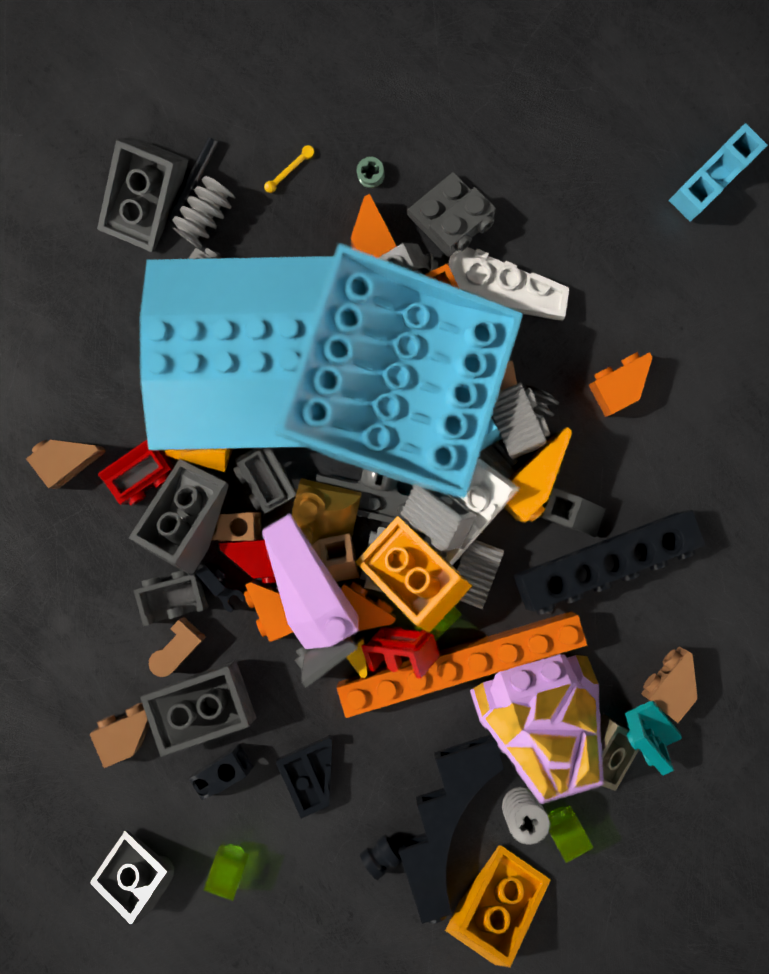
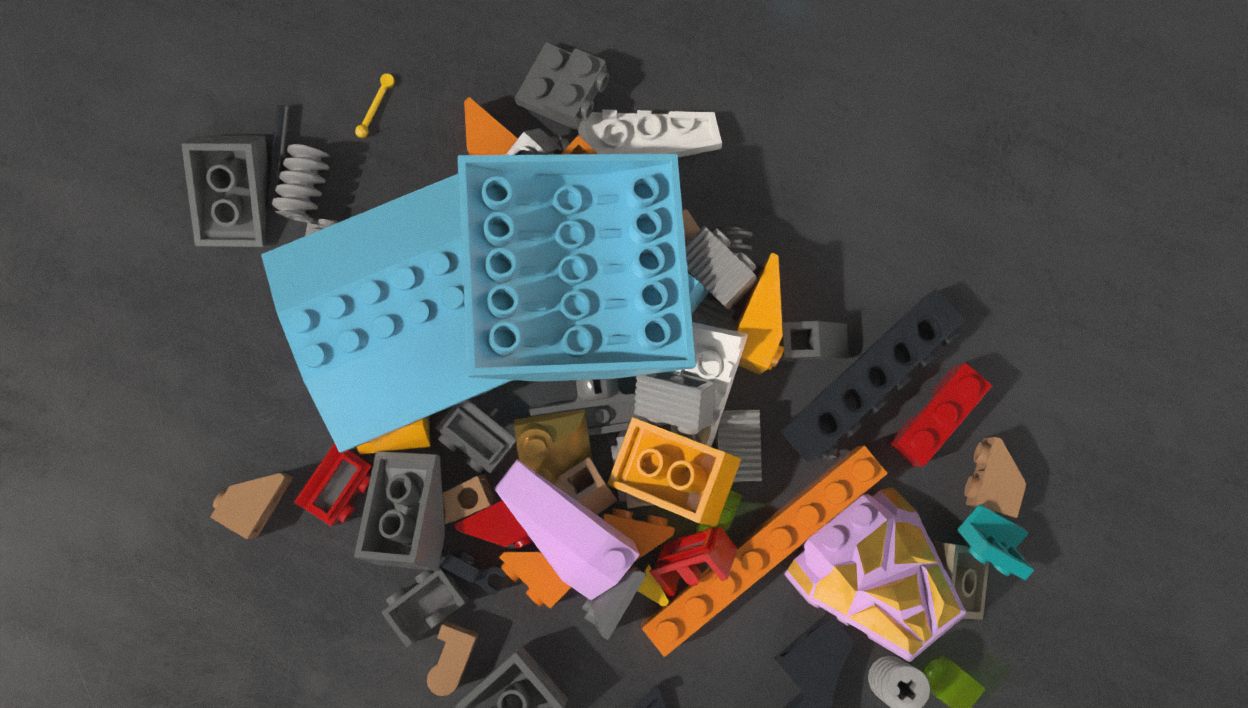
camera: 30 degrees left, 5 degrees down
(376, 179) = (470, 80): sand green bush -> none
(623, 386) = (810, 191): orange slope -> none
(665, 608) = (946, 410): none -> red arch

